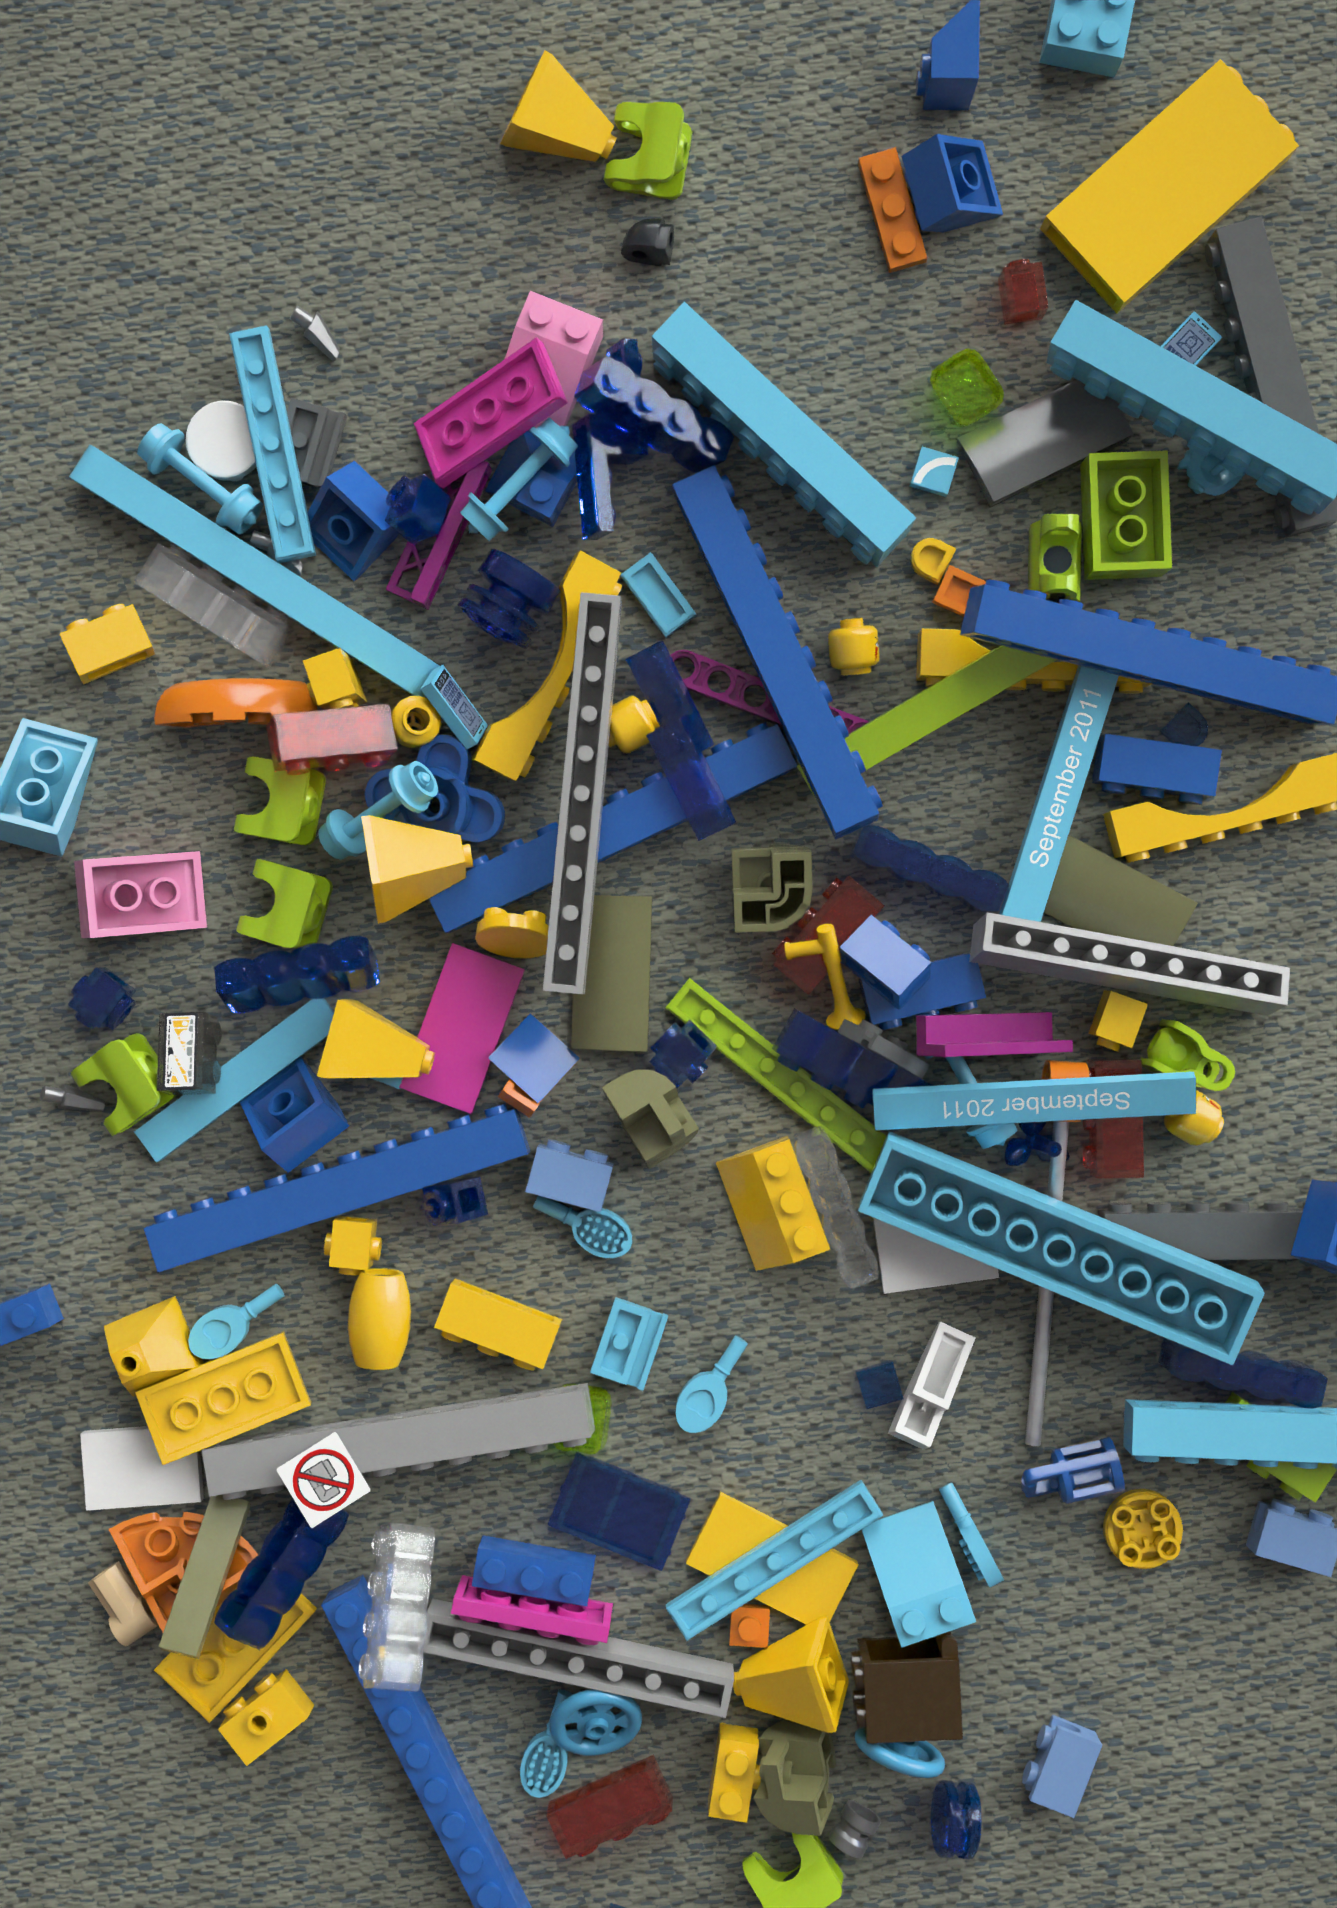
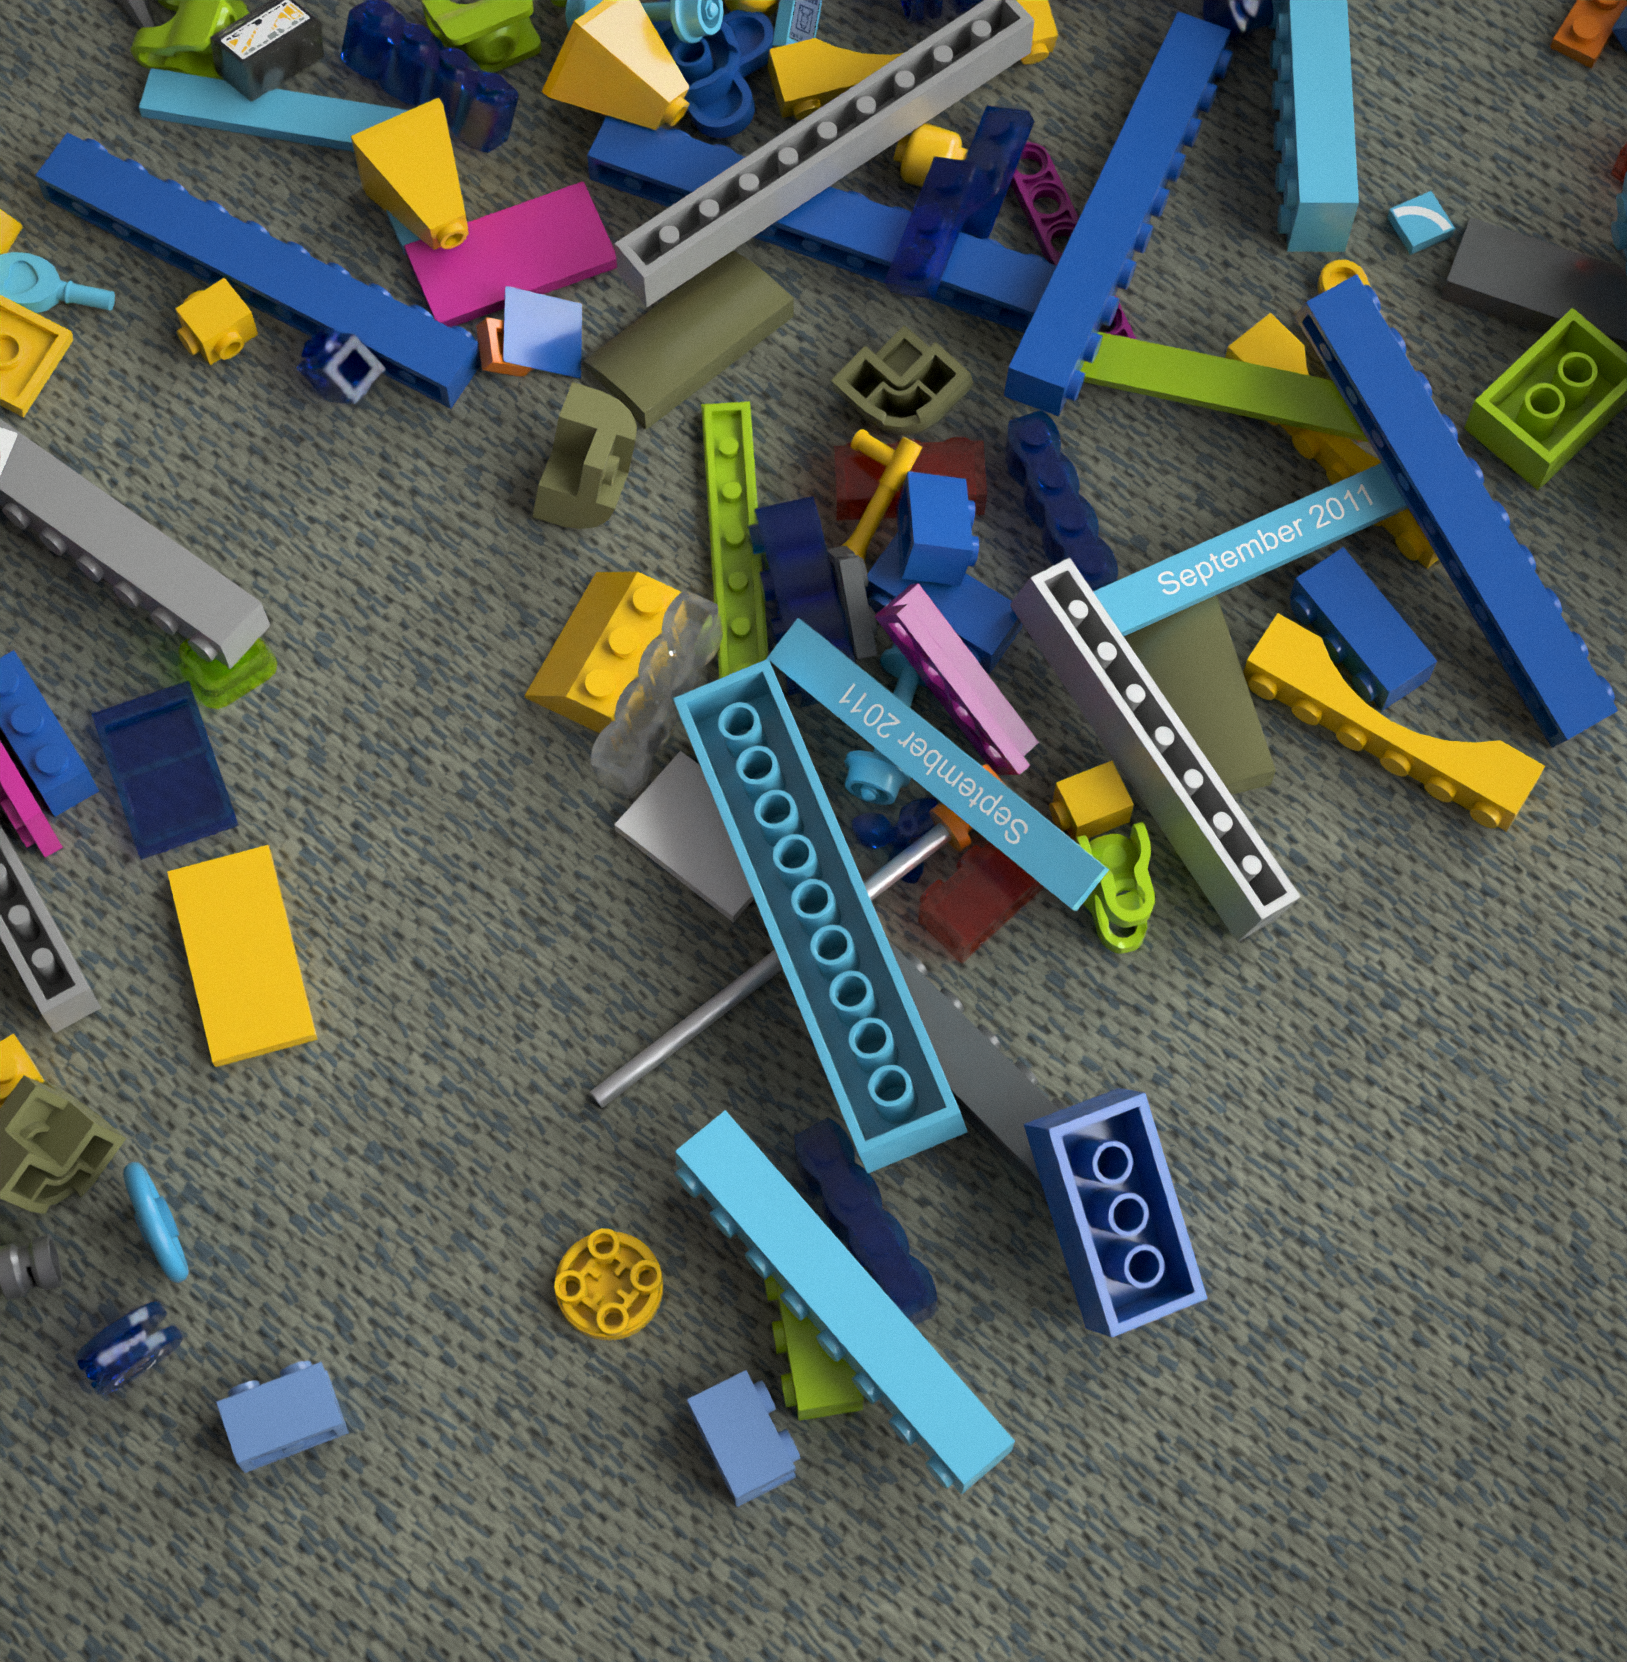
camera: 45 degrees right, 20 degrees down
(293, 1115) = (291, 182): blue slope -> none
(379, 1318) = (164, 396): yellow piece -> none
(497, 1325) = (253, 506): yellow brick -> none
(513, 933) = (634, 198): yellow tile -> none
(569, 1175) = (459, 451): medium blue brick -> none
(597, 1232) = (427, 517): medium azure piece -> none
(629, 1343) = (344, 637): medium azure plate -> none
(658, 595) = (1071, 95): medium azure tile -> none
(682, 1053) = (672, 446): clear blue brick -> none
(705, 1394) = (358, 748): medium azure piece -> none
(750, 1626) = (156, 989): orange plate -> none
(774, 1560) = (247, 945): medium azure tile -> none
(797, 1678) = (148, 1064): yellow slope -> none
(853, 647) = (1194, 281): yellow head -> none
(879, 1384) = (518, 902): clear blue tile -> none
(908, 1689) = (234, 1172): dark brown container -> none
(918, 1574) = (355, 1096): medium azure slope -> none
(932, 1386) = (562, 947): white slope -> none
(966, 387) = (1519, 181): clear neon green piece -> none
(972, 1538) = (442, 1119): medium azure piece -> none
(1055, 555) = (1465, 366): lime piece -> none
(1064, 1481) = (589, 1142): blue piece -> none
(1186, 727) = (1432, 627): tile -> none
(1197, 1127) = (1069, 954): yellow head -> none

